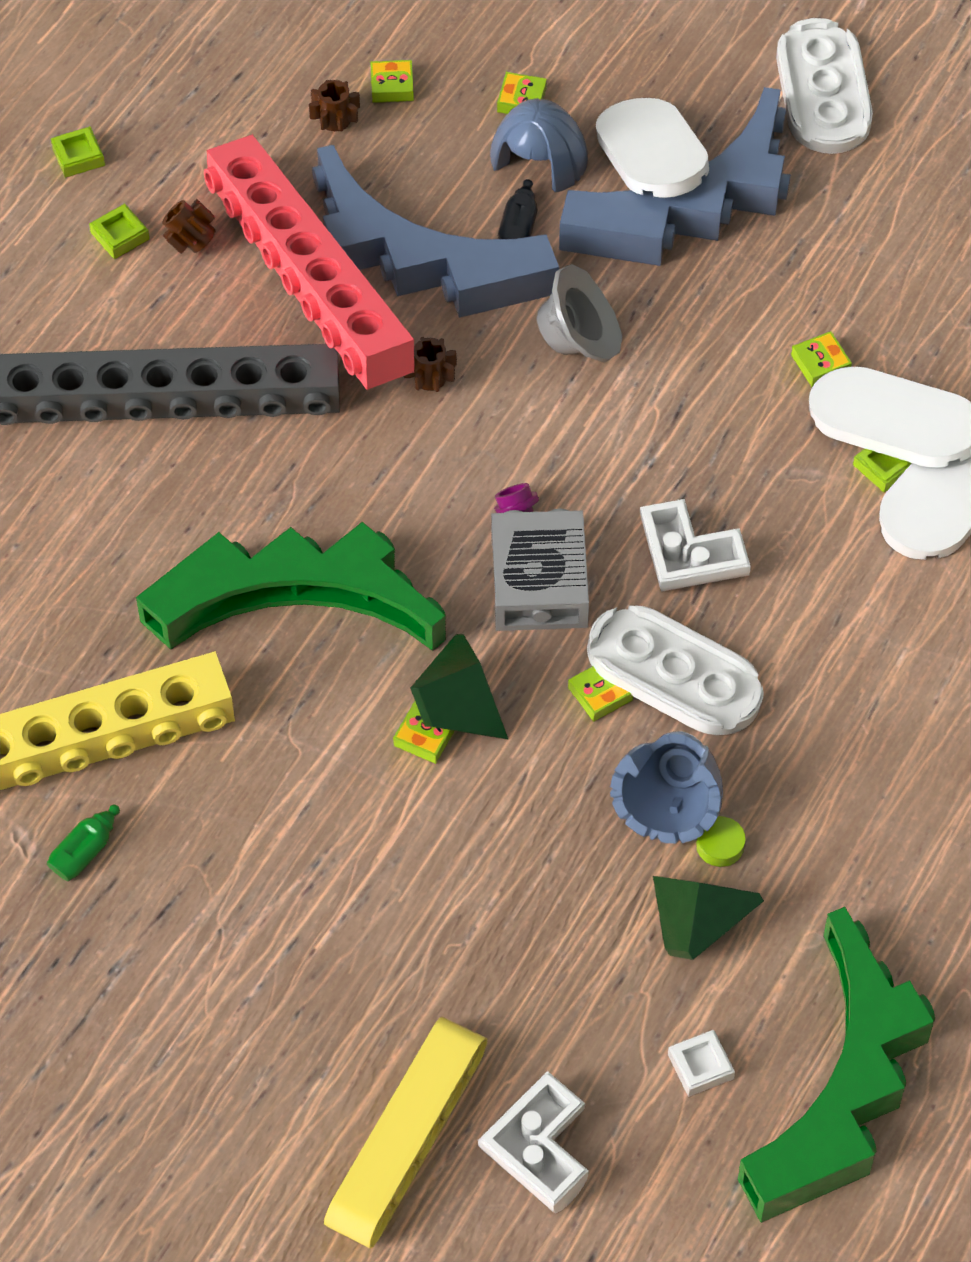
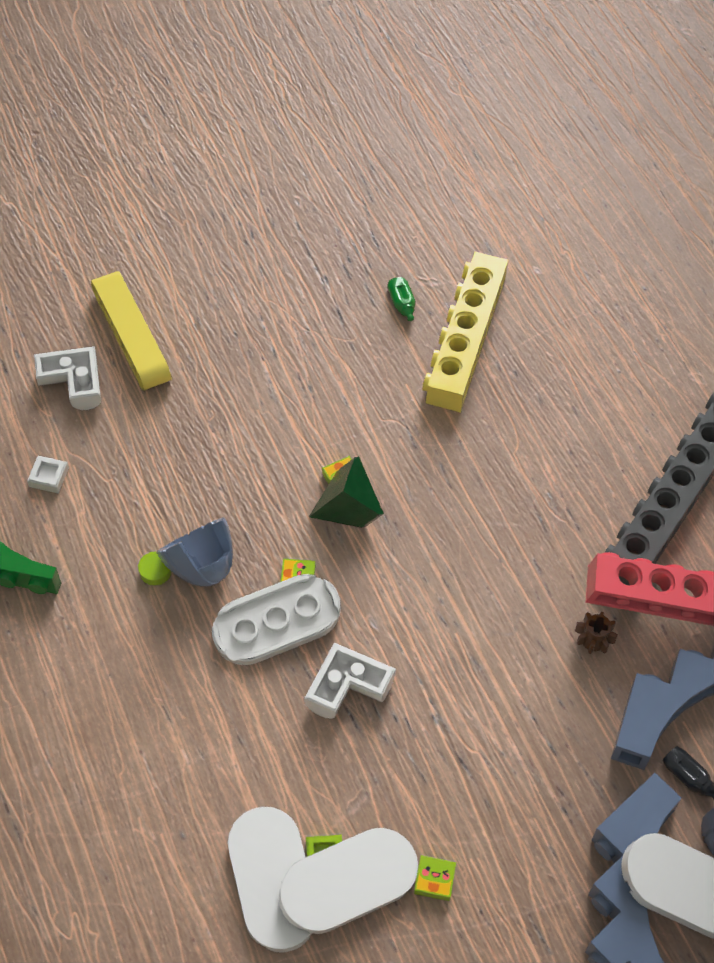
camera: 125 degrees right, 0 degrees up
(289, 571) = (495, 473): green arch -> none
(516, 498) = (457, 613): magenta plate -> none
(539, 570) = (400, 589): light grey panel -> none
(579, 317) = (564, 734): light grey hat -> none
(698, 913) = (121, 528): dark green slope -> none

